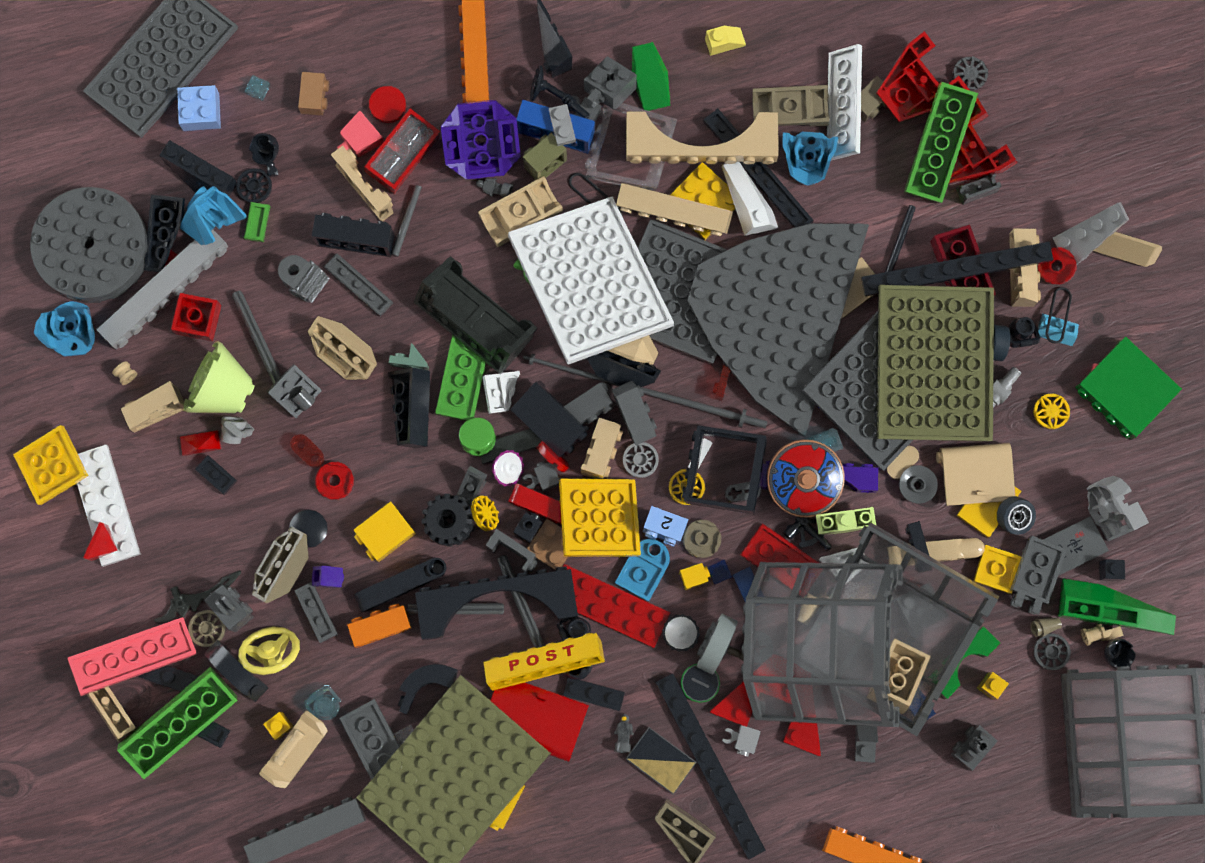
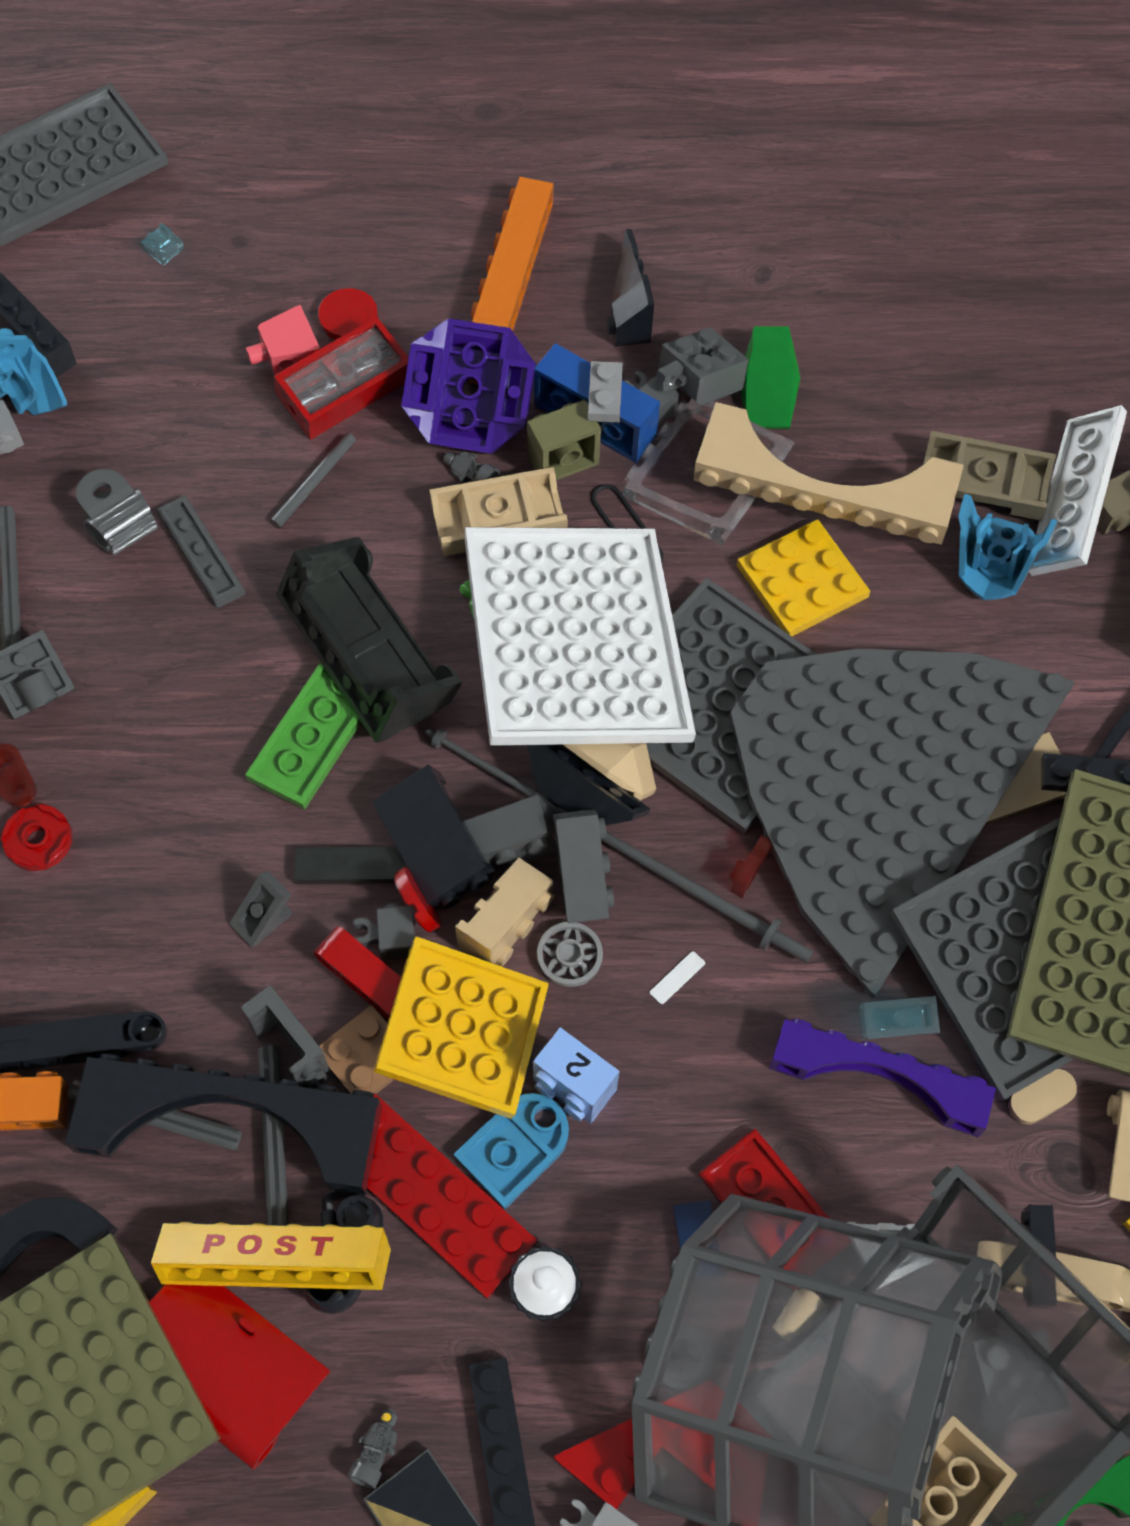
camera: 20 degrees right, 15 degrees down
(199, 108) = (62, 244): light blue brick -> none
(254, 185) = (100, 371): black wheel -> none
(257, 222) = (81, 421): bright green tile -> none
(264, 151) = (134, 324): black hair -> none
(312, 93) = (240, 270): medium nougat piece -> none
(342, 349) = (130, 631): tan wedge -> none
(353, 235) = (218, 470): black brick -> none
(378, 202) = (272, 426): tan piece -> none
(383, 532) = (81, 944): yellow brick -> none
(411, 406) = (210, 753): black wedge -> none
(414, 360) = (239, 685): sand green slope -> none
(436, 524) = (187, 937): black wheel -> none
(477, 436) = (300, 831): bright green head -> none
(484, 513) = (265, 960): yellow wheel -> none
(499, 391) = (367, 771): white wing -> none
(508, 468) = (333, 897): white piece -> none
(528, 527) = (332, 1008): black brick -> none
(540, 84) = (594, 342): black dish -> none
(594, 694) = (347, 1352): black plate -> none
(674, 208) = (752, 570): tan brick -> none
(684, 483) = (637, 1024): yellow wheel -> none
(694, 457) = (666, 971): black window -> none
(694, 576) = (602, 1186): yellow brick -> none
(699, 684) = (552, 1393): black tile -> none
(702, 539) = (637, 1124): dark tan tile -> none
(717, 644) = (605, 1323): light grey wheel -> none
(719, 572) = (651, 1194): clear blue tile -> none
(724, 39) = (902, 357): light yellow slope -> none
(740, 497) = (735, 1054): dark grey beam -> none
(750, 205) = (878, 600): white wedge -> none
(761, 174) = (913, 567): black plate -> none
(802, 524) = (831, 1150): black piece -> none
(805, 478) = (856, 1066): dish -> none
(845, 521) = (903, 1166): yellowish green slope -> none
(924, 477) = (1077, 1134): dark grey dish -> none

